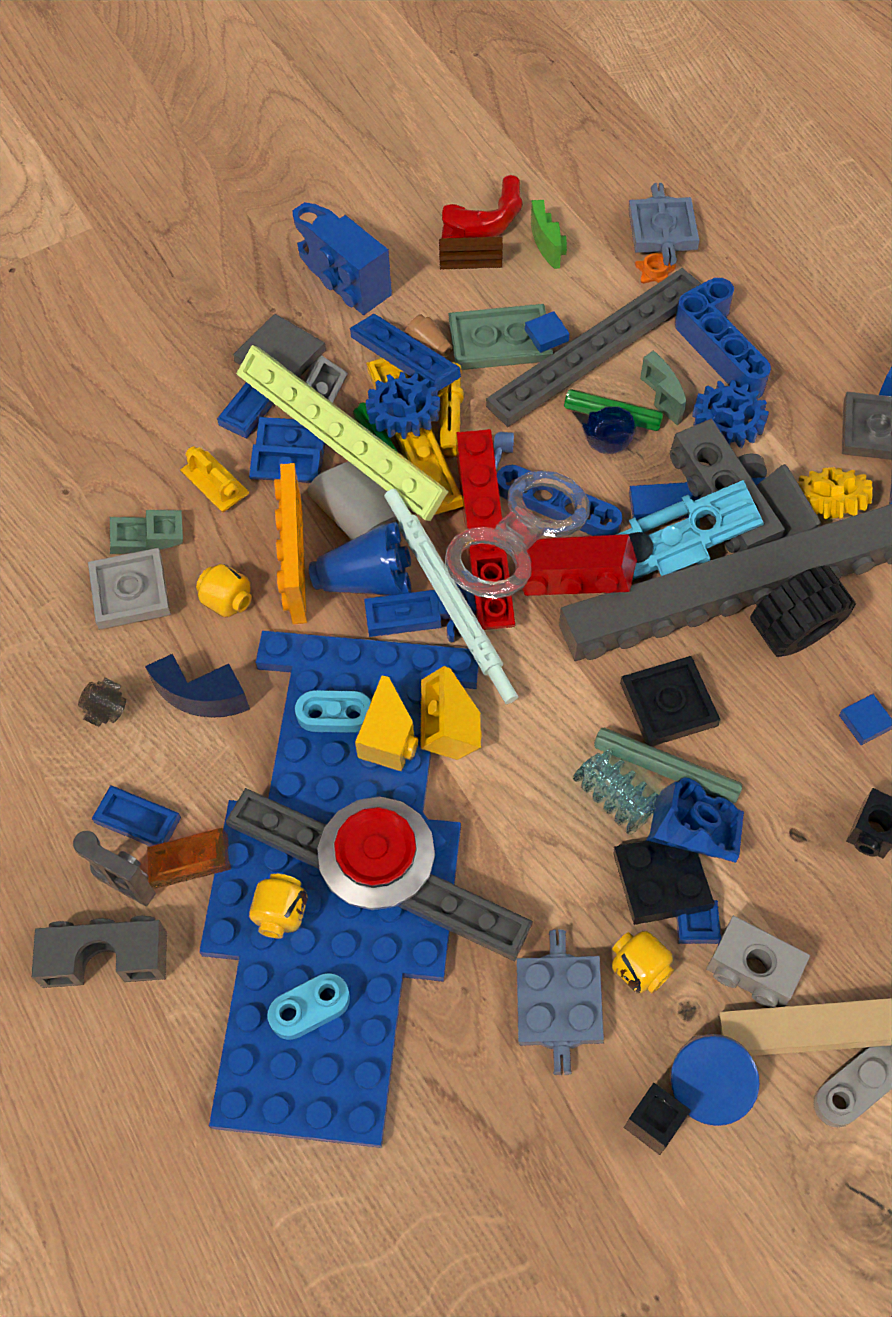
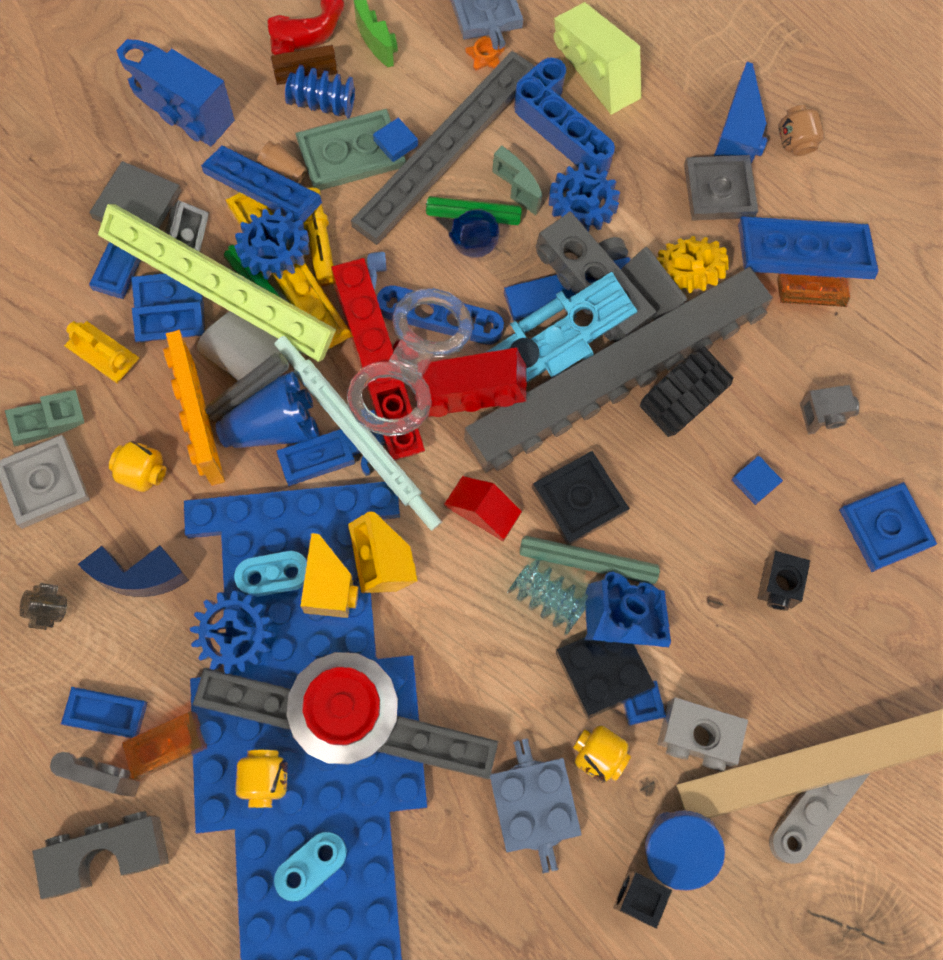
camera: 20 degrees left, 10 degrees up
(278, 773) = (232, 617): none -> blue gear
(363, 522) = (247, 386): none -> dark grey axle
(481, 279) = (320, 92): none -> blue piece
(567, 692) = (484, 506): none -> red slope
(774, 285) = (600, 55): none -> yellowish green wedge

